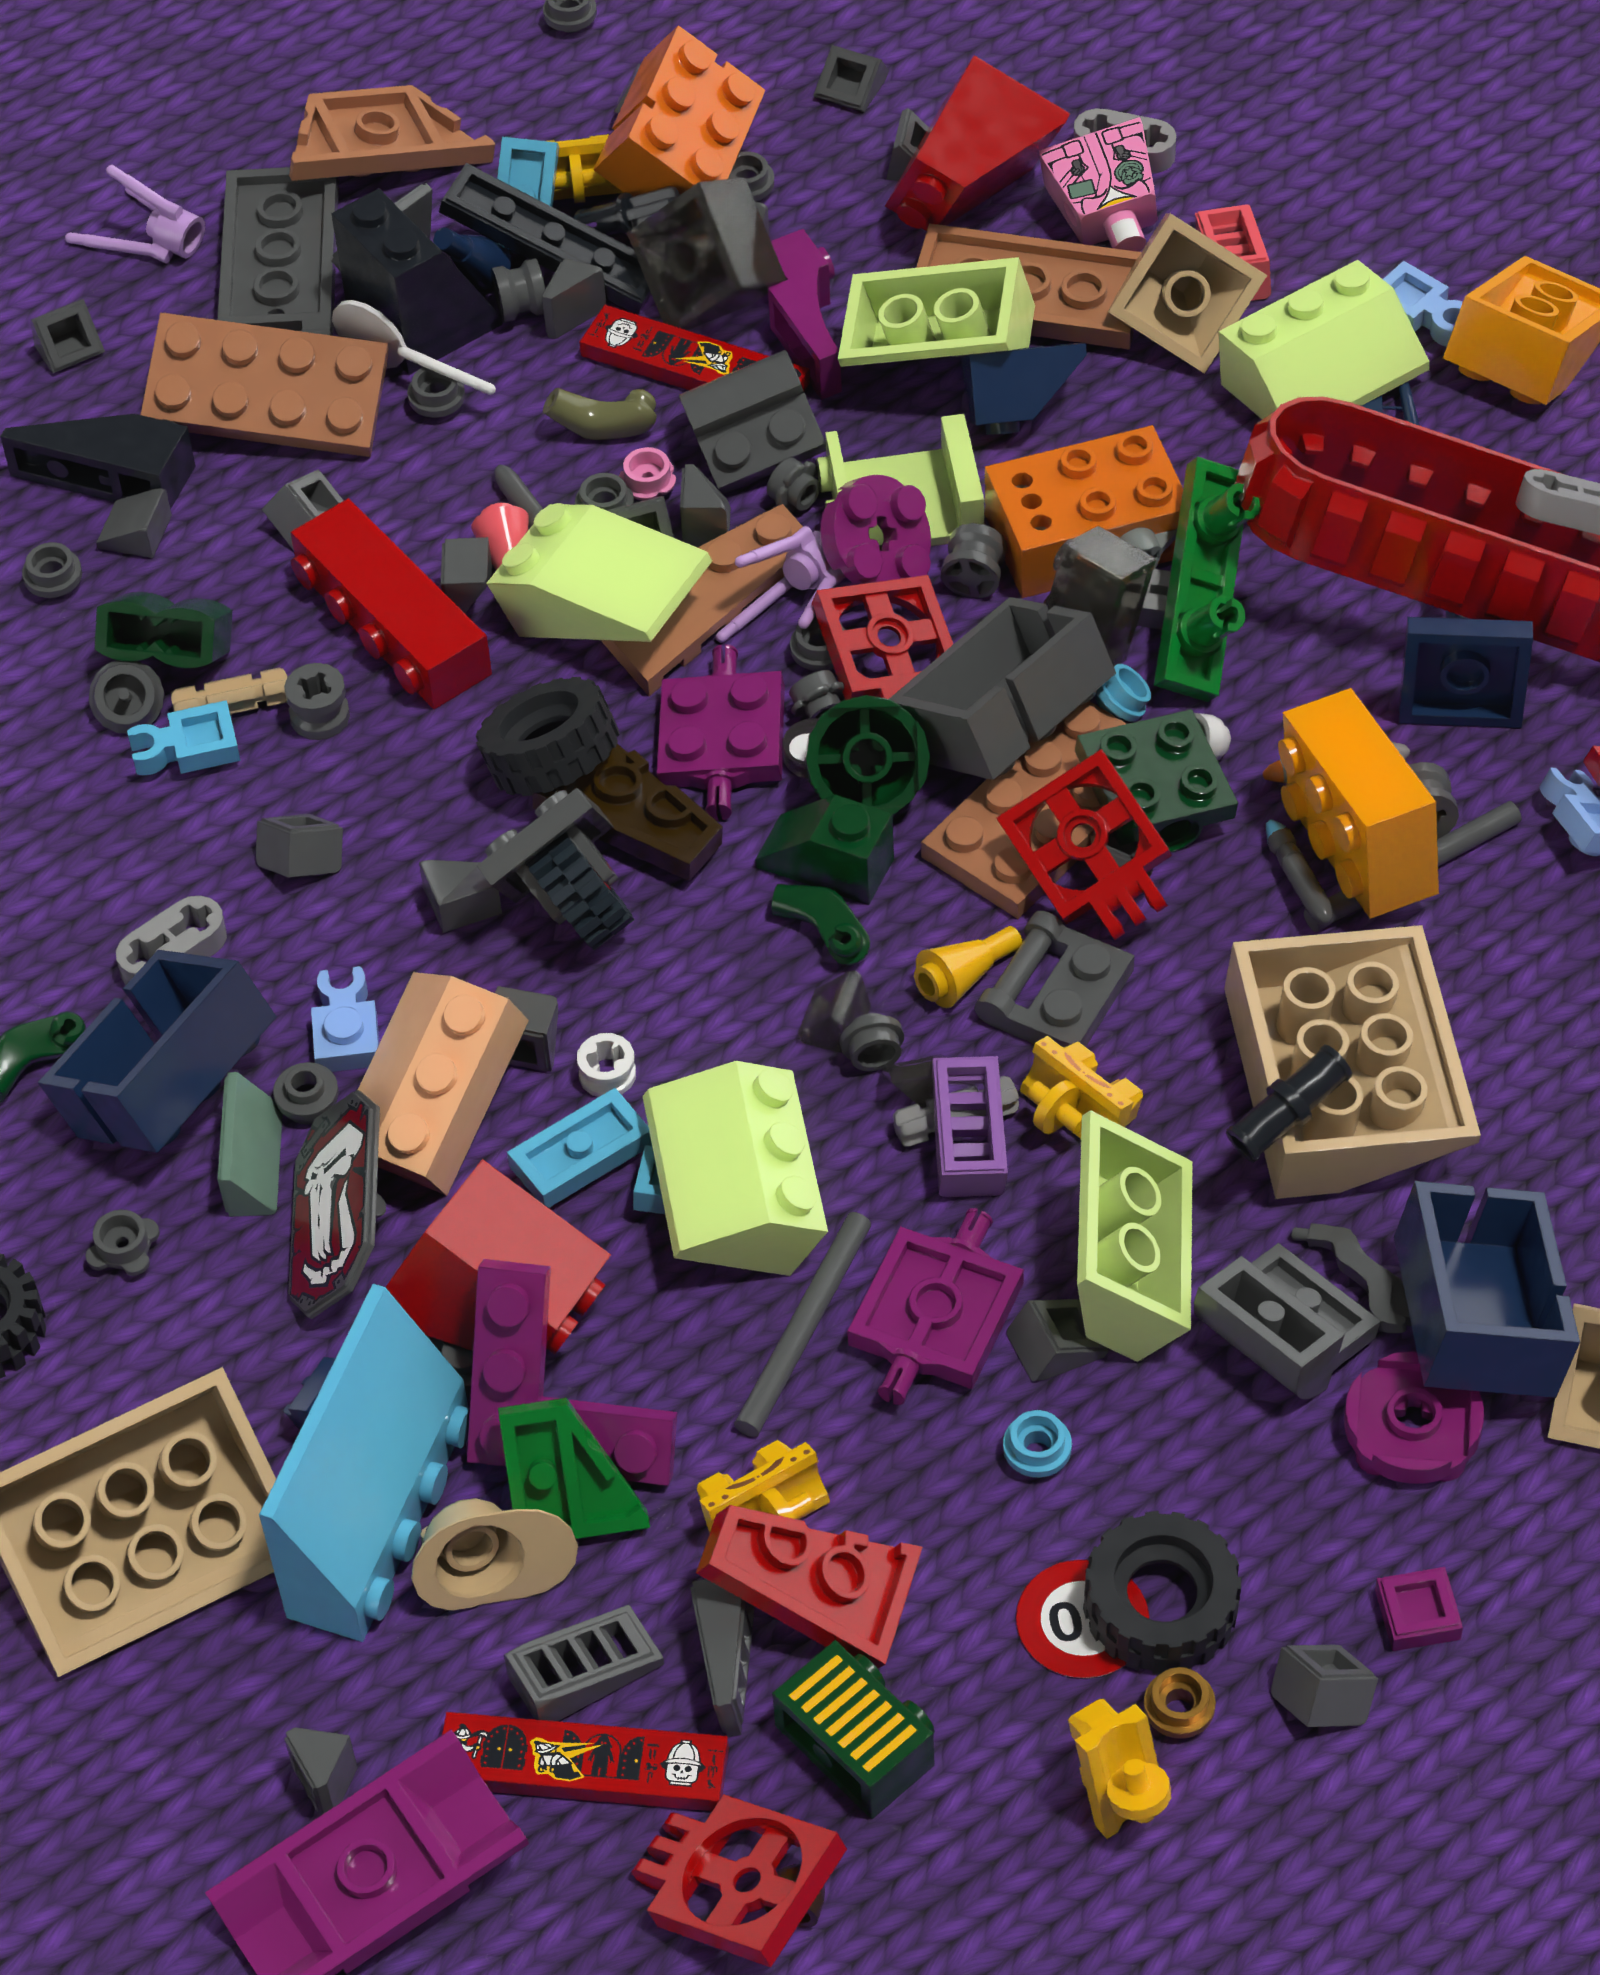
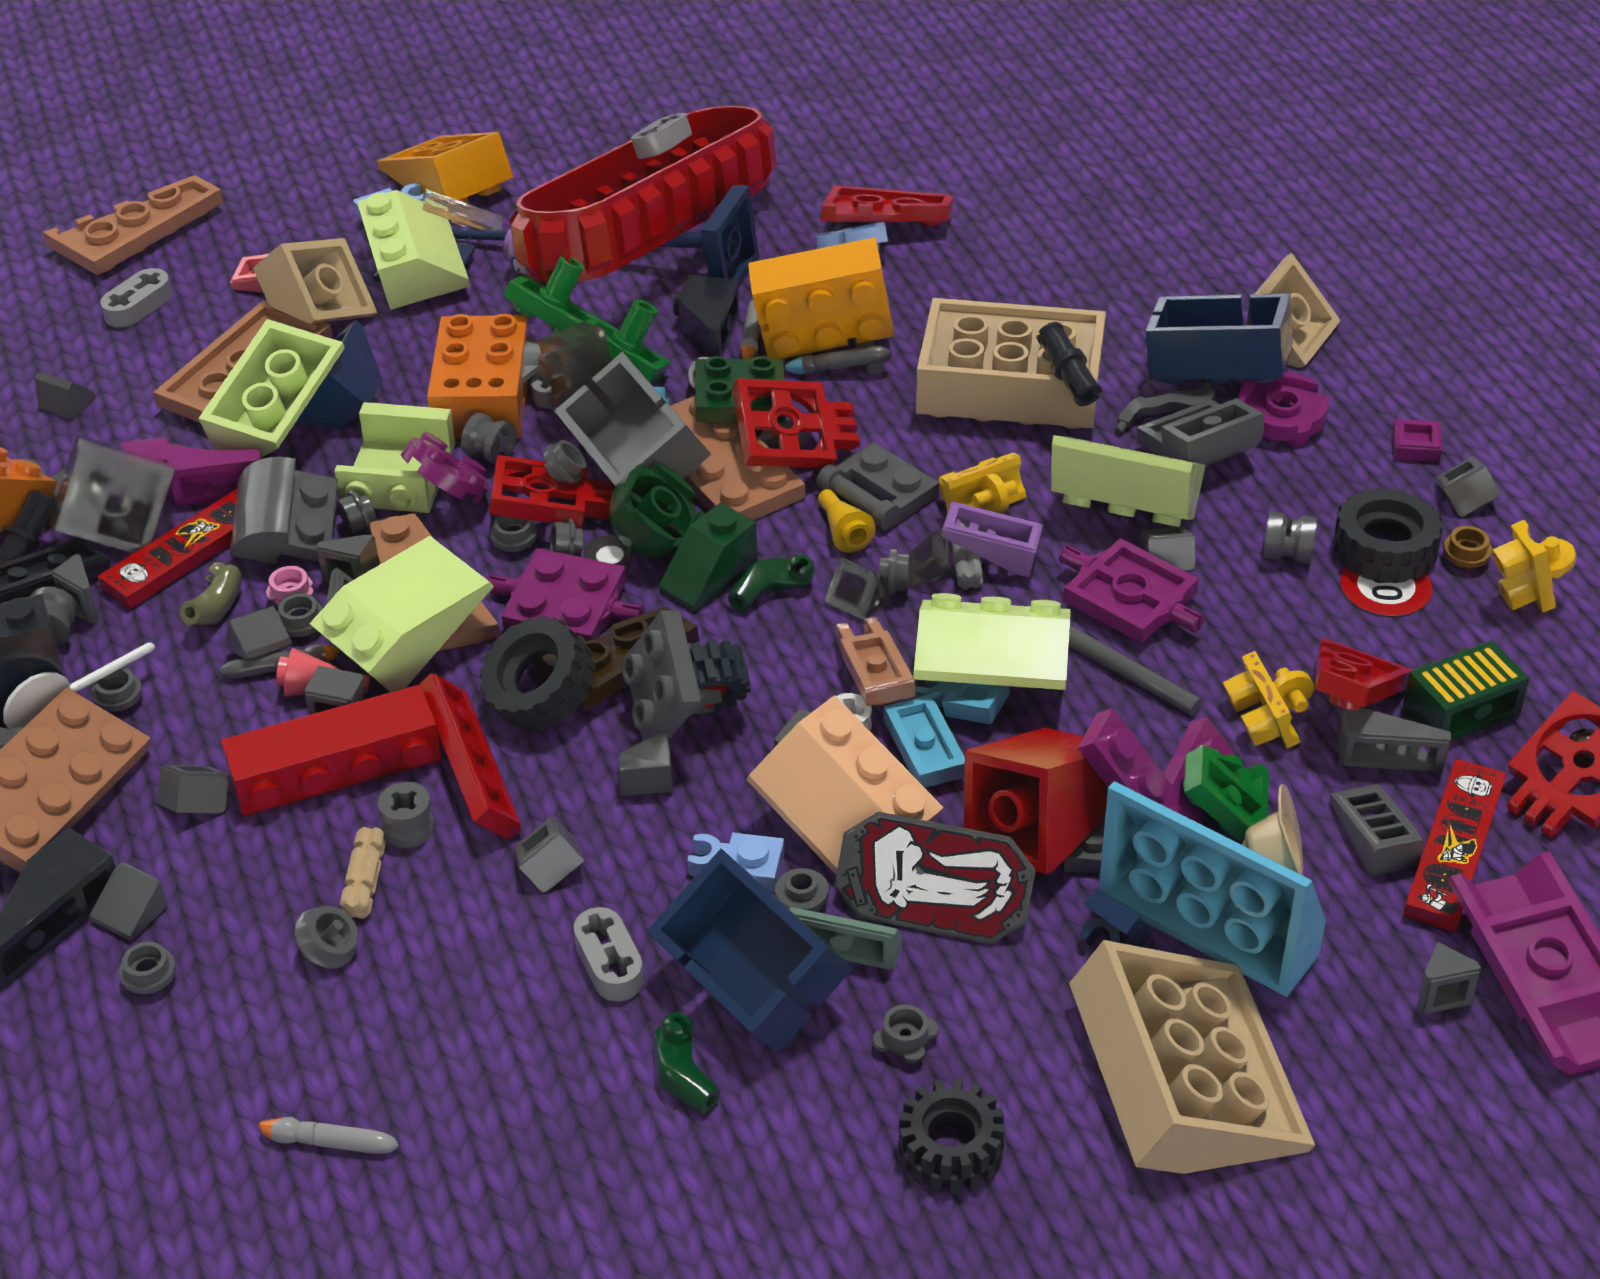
camera: 75 degrees left, 10 degrees down
(151, 625) = (281, 887): dark green brick -> none
(195, 738) = (397, 899): medium azure plate -> none
(415, 725) = (471, 757): none -> red tile
(545, 473) = (257, 634): none -> dark grey slope
(687, 1050) = (875, 664): none -> nougat hinge
(803, 569) = (445, 516): lavender plant -> none
(940, 634) = (564, 462): none -> dark grey plate
(974, 146) = (111, 341): red slope -> none
(1042, 1428) = (1253, 568): medium azure plate -> none
(1103, 185) = (188, 303): bright pink torso -> none
(1106, 1471) = (1290, 537): none -> flat silver wheel
(1243, 75) = (134, 224): none -> nougat wing
(1314, 679) = (707, 312): none -> black slope
(1429, 377) = (460, 212): none -> clear piece

